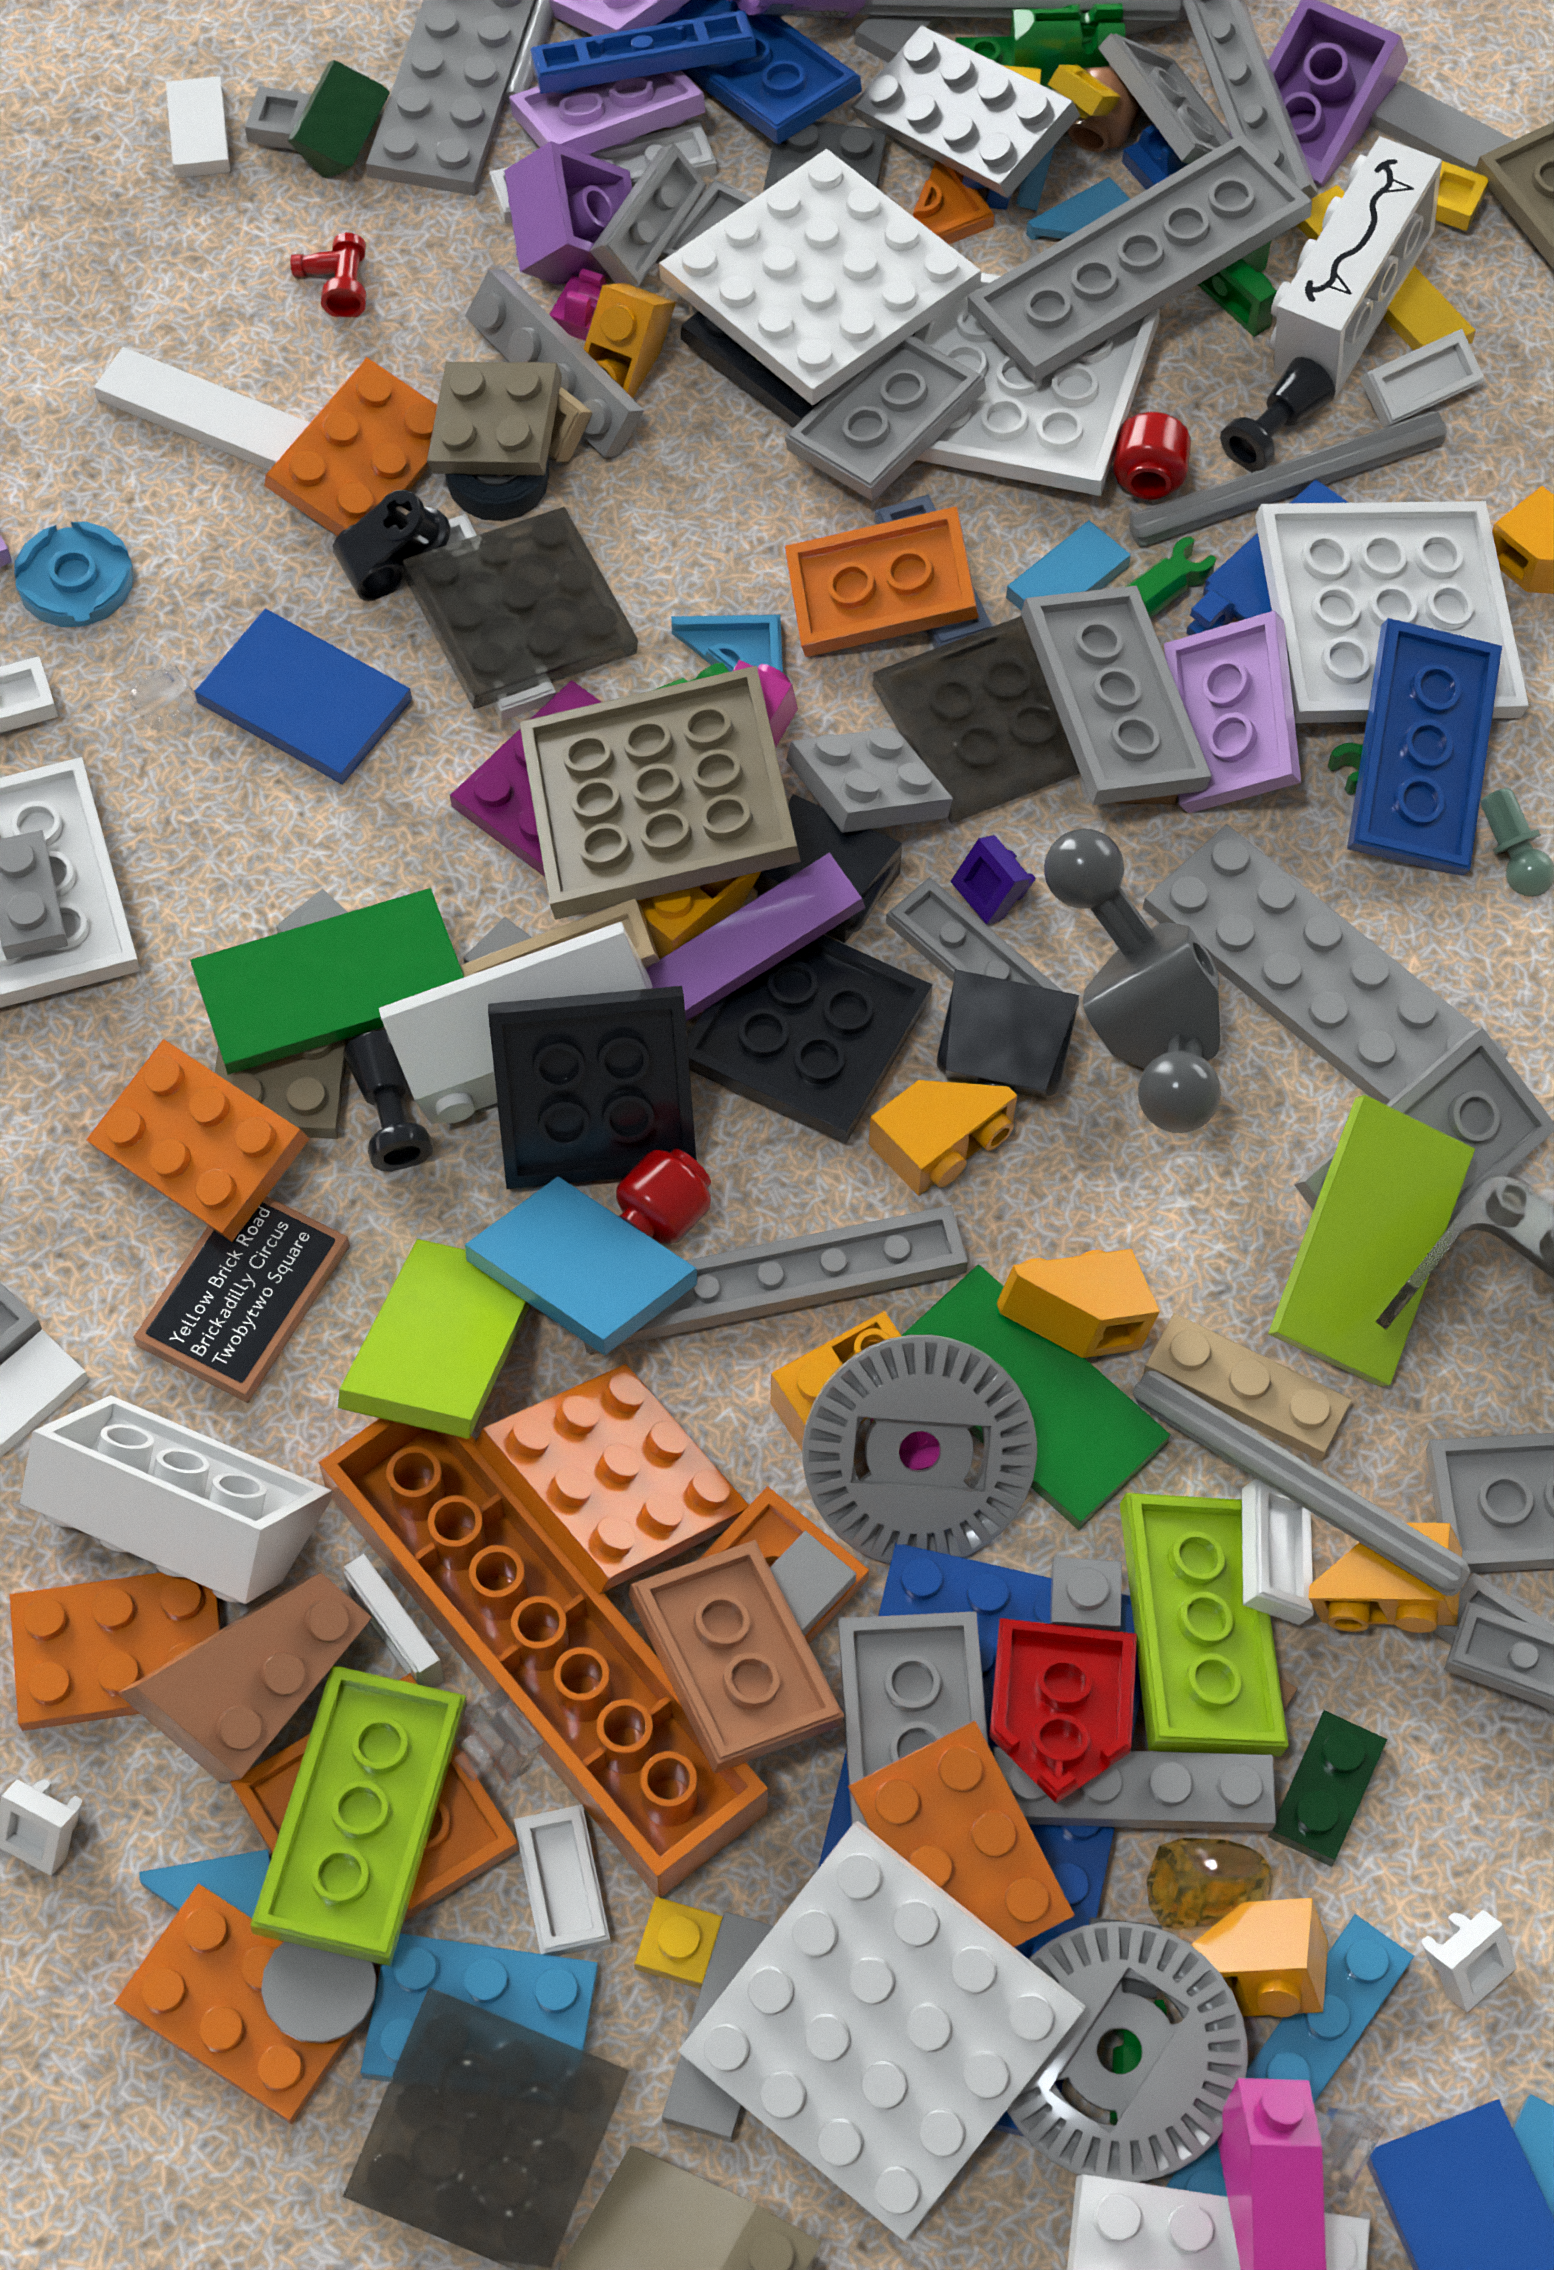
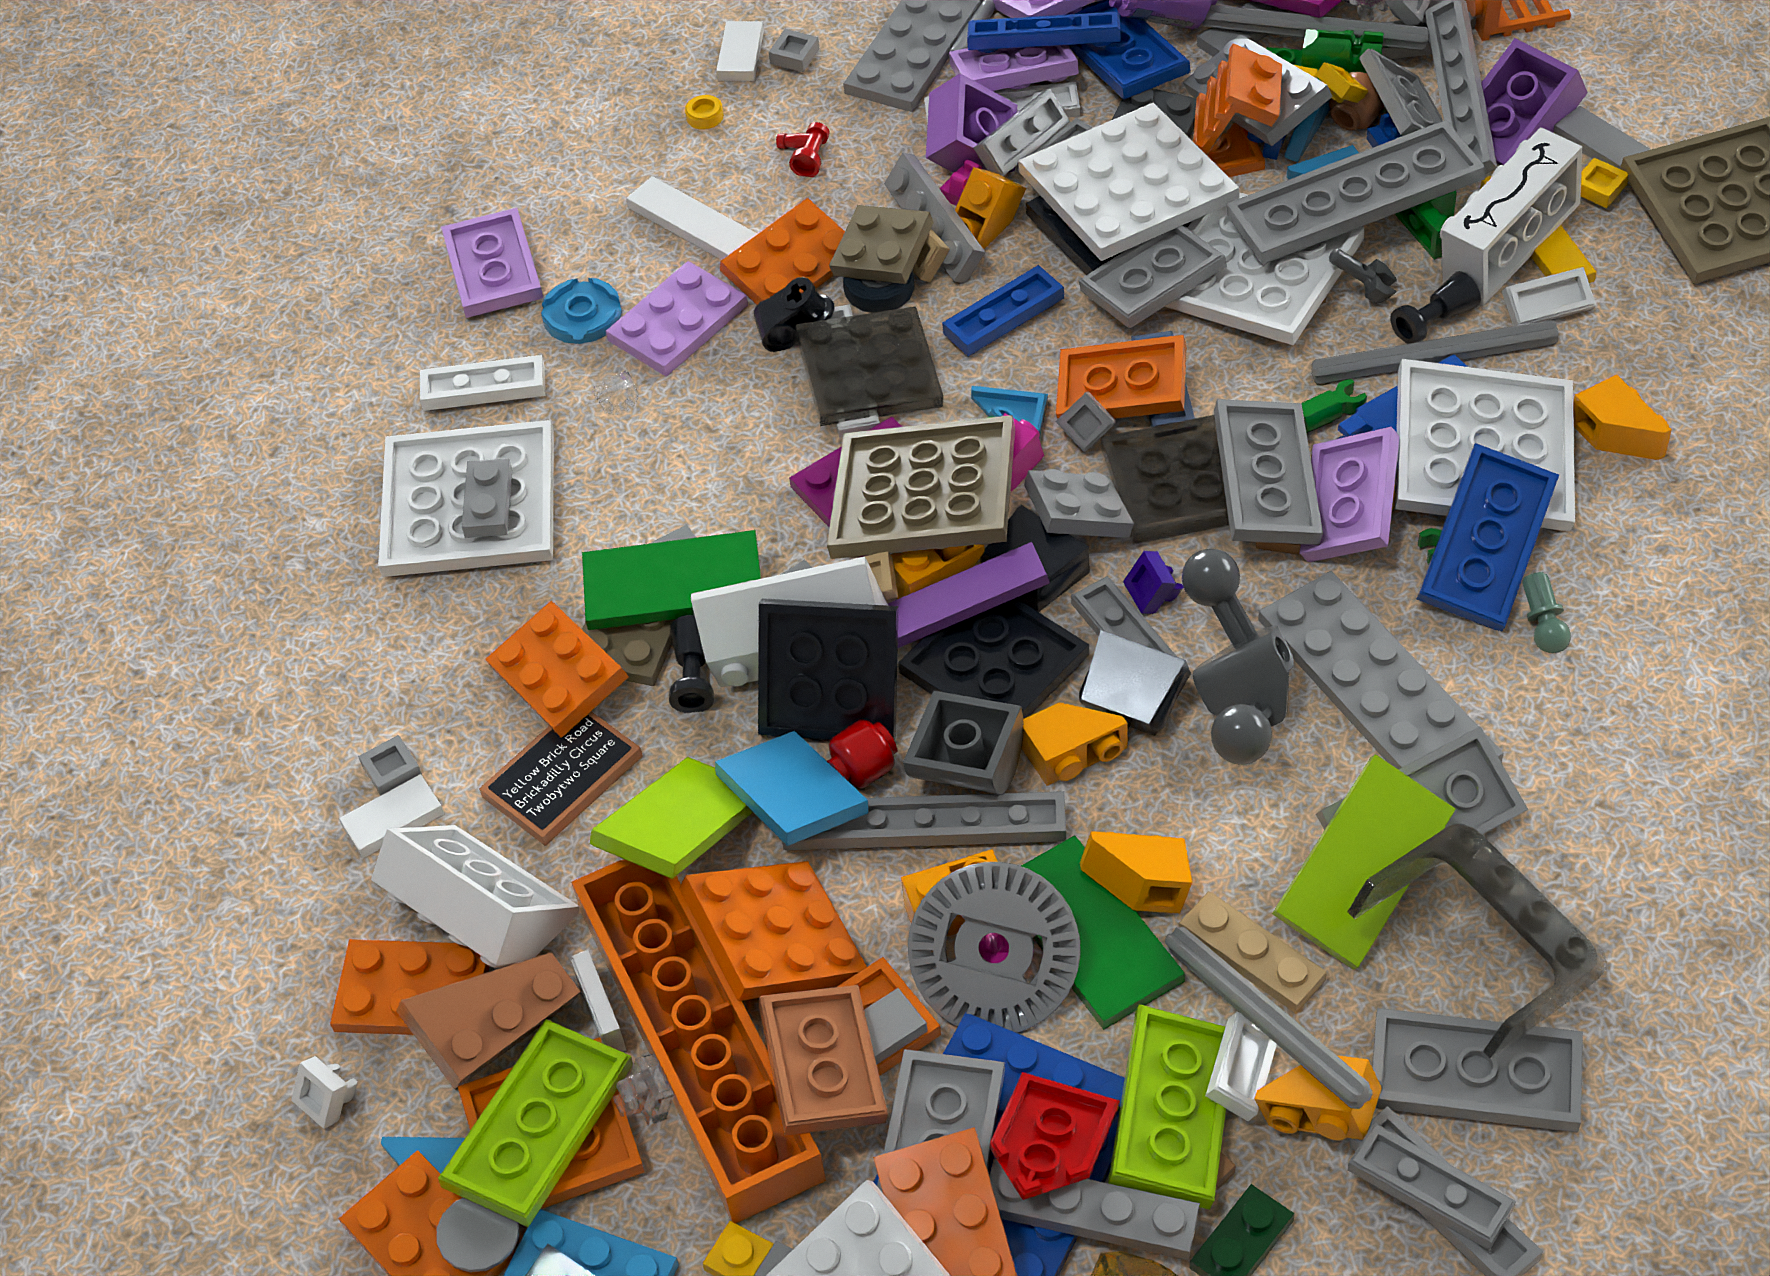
camera: 20 degrees right, 10 degrees down
(170, 232) = (704, 112): none -> yellow tile
(218, 567) = (677, 318): none -> lavender plate
(303, 696) = (710, 404): blue tile -> none
(338, 119) = (831, 53): dark green slope -> none
(562, 1881) = (669, 1199): white tile -> none
(687, 495) = (1003, 310): none -> blue plate
(808, 1160) = (967, 743): none -> dark grey brick
(847, 652) = (1086, 421): none -> light grey tile
(955, 117) = (1243, 85): none -> orange plate
(1078, 564) = (1269, 385): dark azure tile -> none
(1086, 1593) = (1091, 1066): light grey plate -> none
(1152, 455) = (1336, 323): red head -> none
(1184, 374) = (1375, 276): none -> dark grey bar

